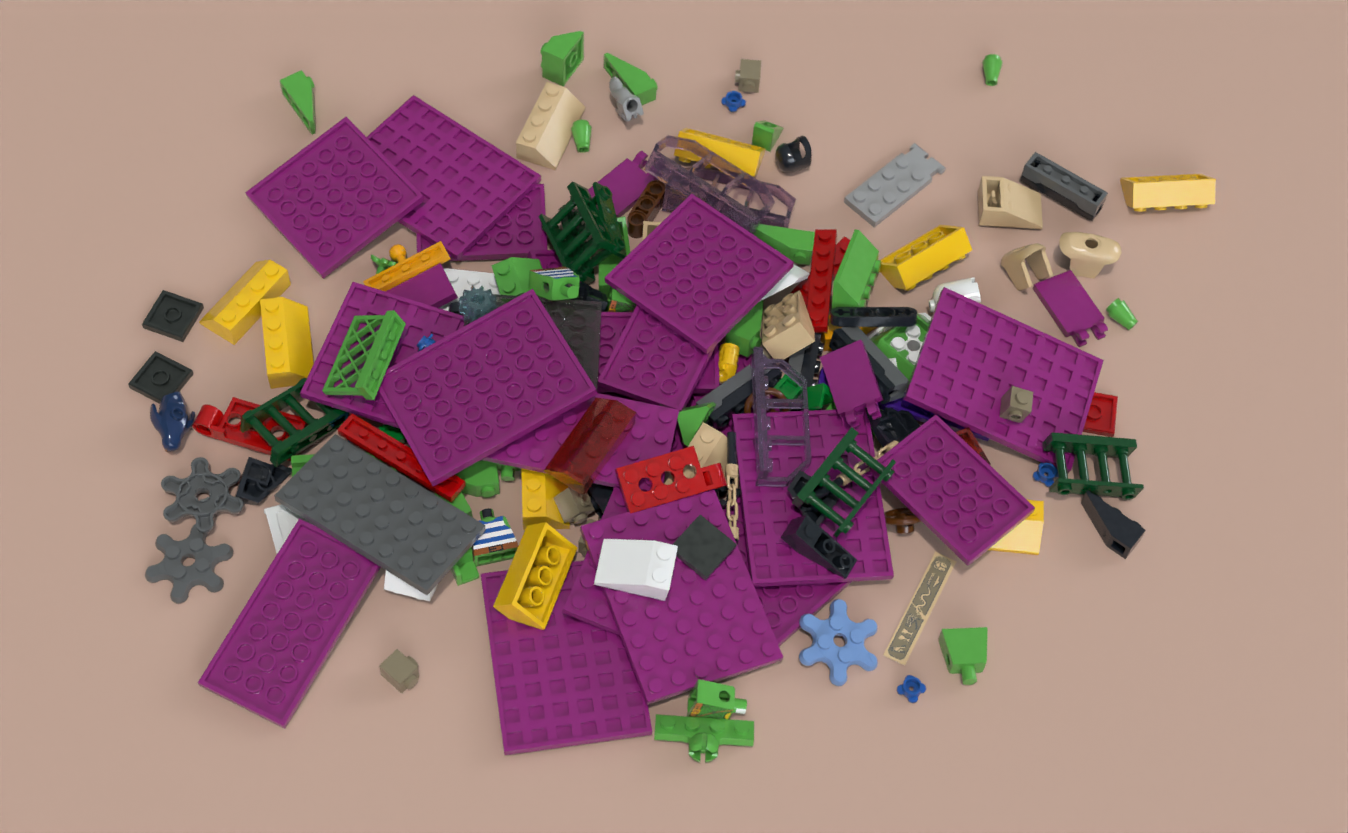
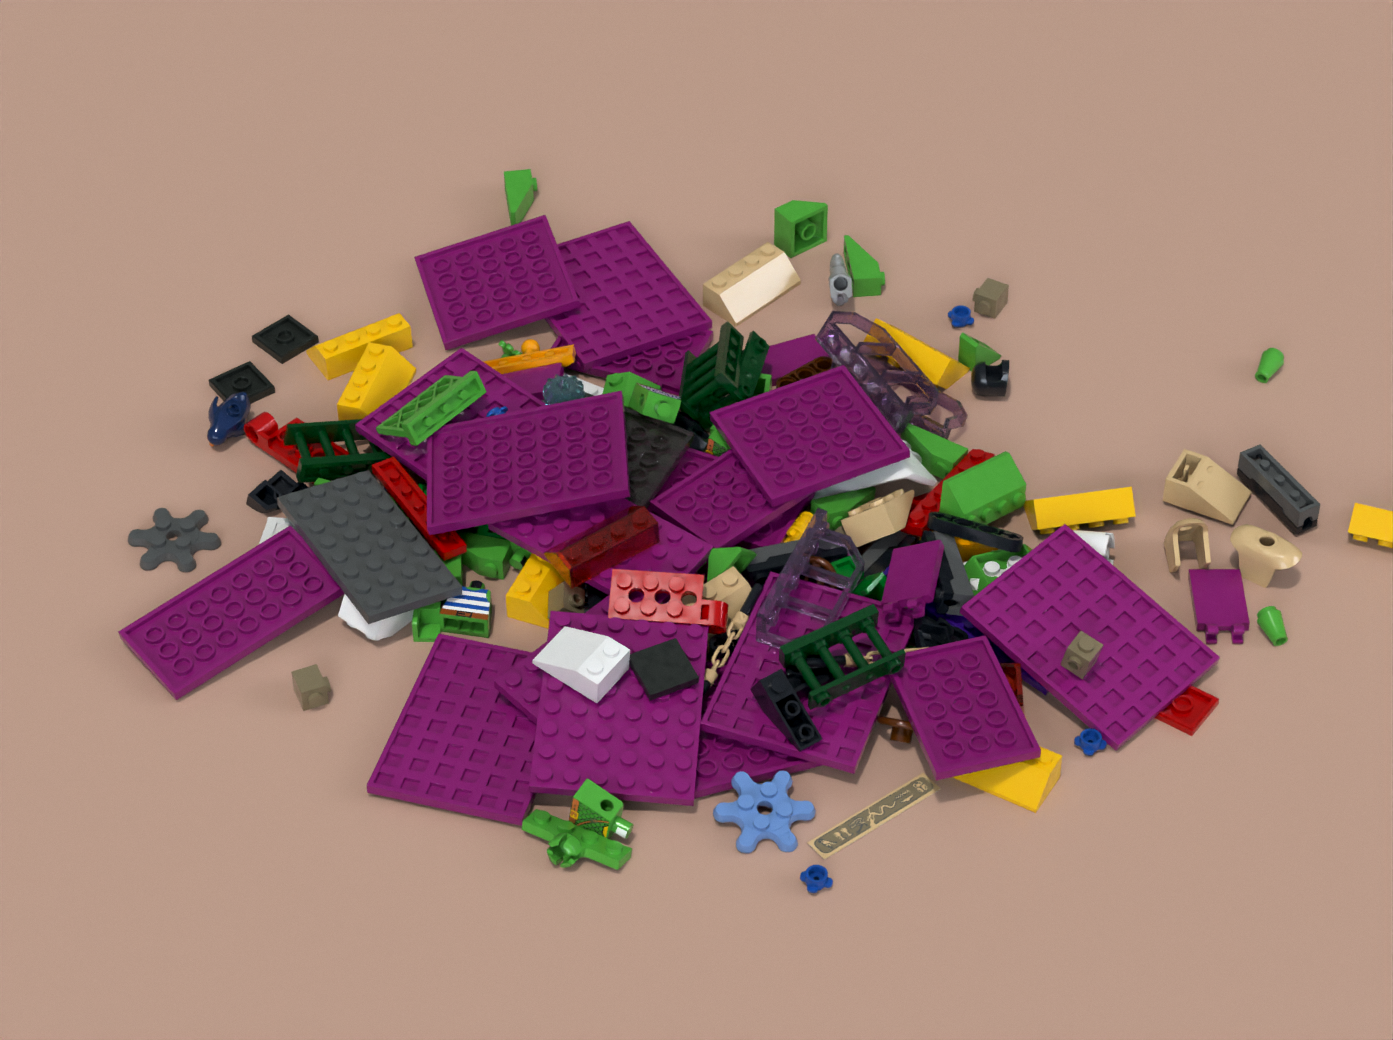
camera: 30 degrees right, 15 degrees down
(197, 482) = (223, 477): dark grey plate -> none
(535, 576) = (488, 648): yellow slope -> none
(582, 133) = (780, 300): bright green cone -> none
(893, 185) = (1090, 438): light grey hinge -> none
(964, 651) = (895, 864): bright green torso -> none
(1101, 448) = (1150, 725): dark green fence -> none
(1114, 528) = (1136, 815): black slope -> none

